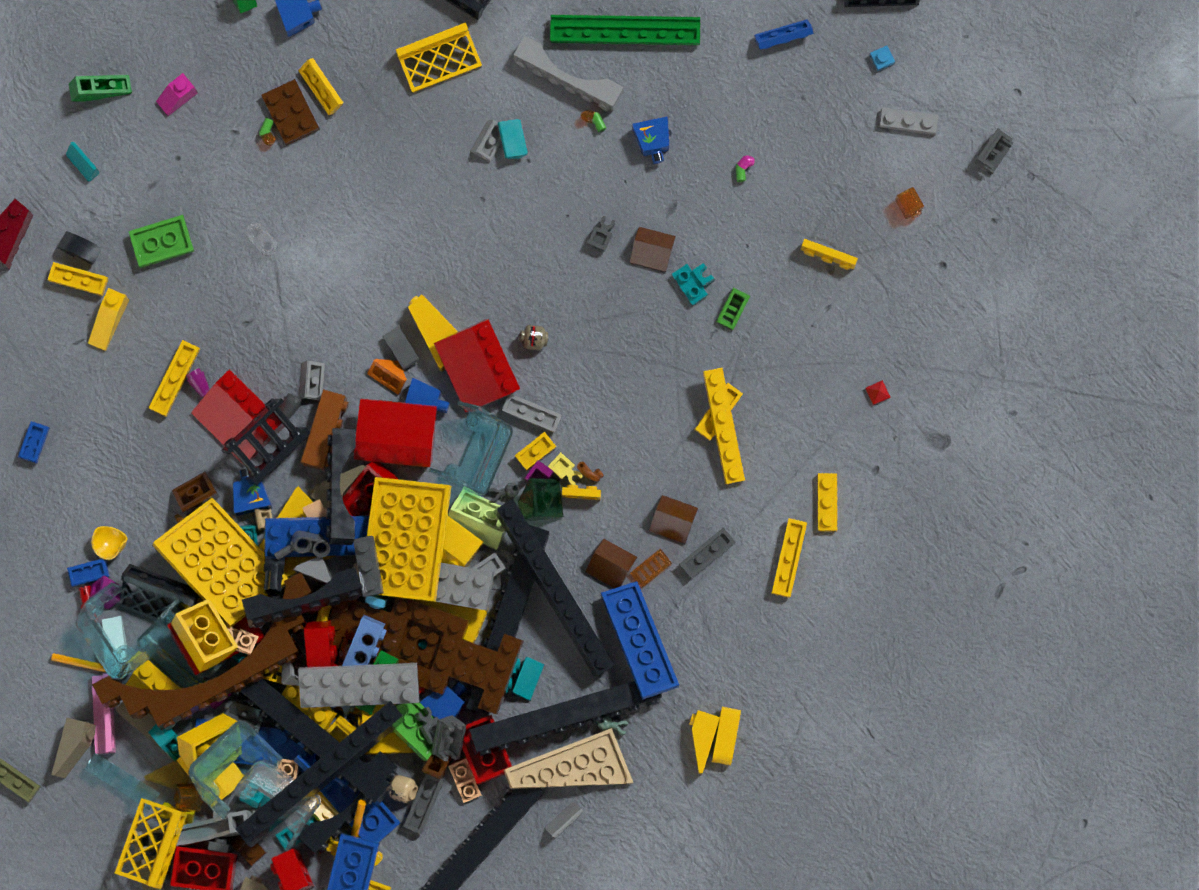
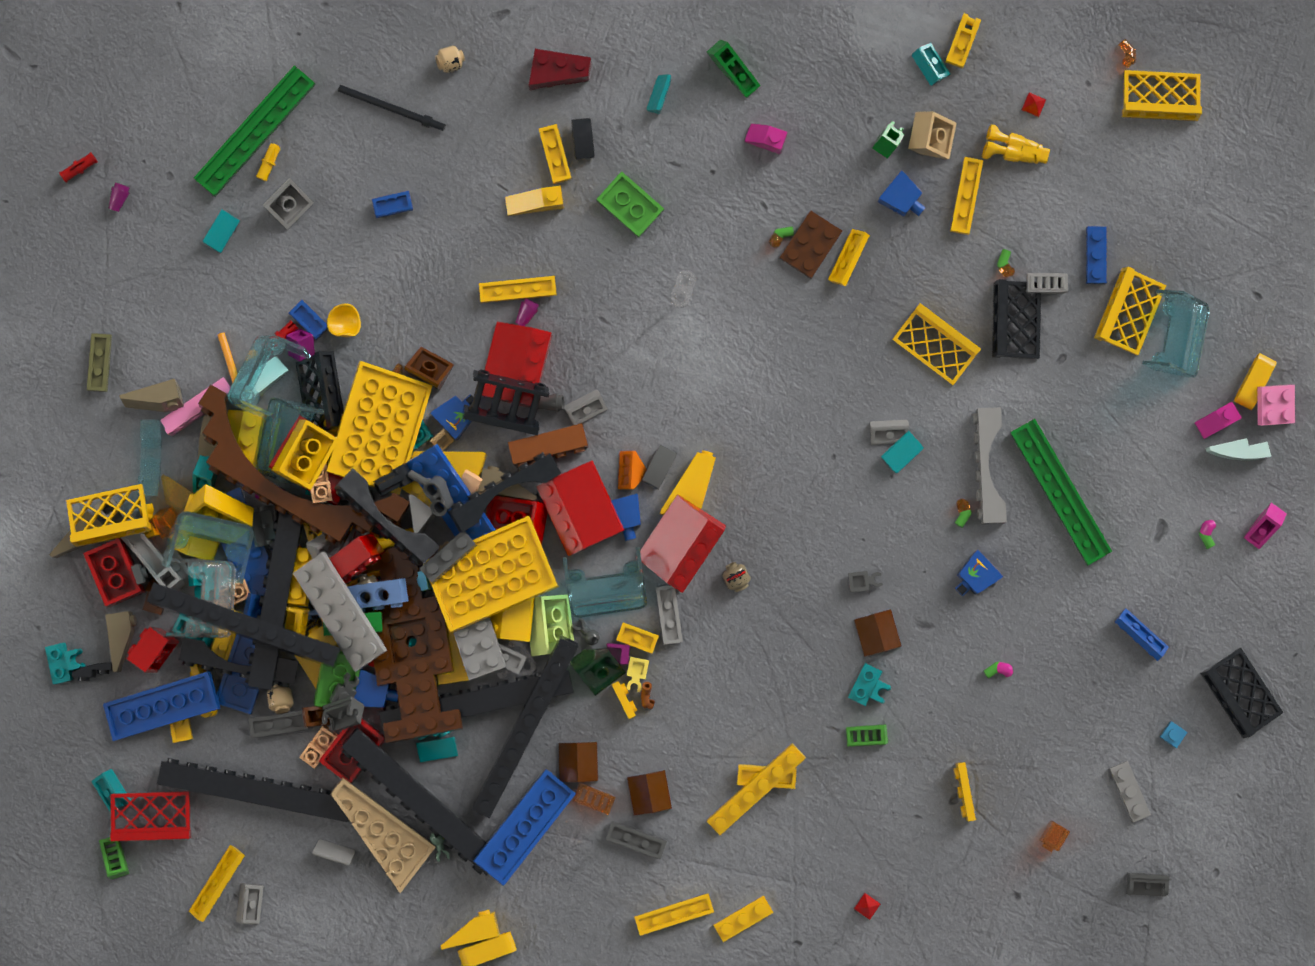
camera: 60 degrees right, 5 degrees up
(358, 818) = (229, 678): light orange bar -> none

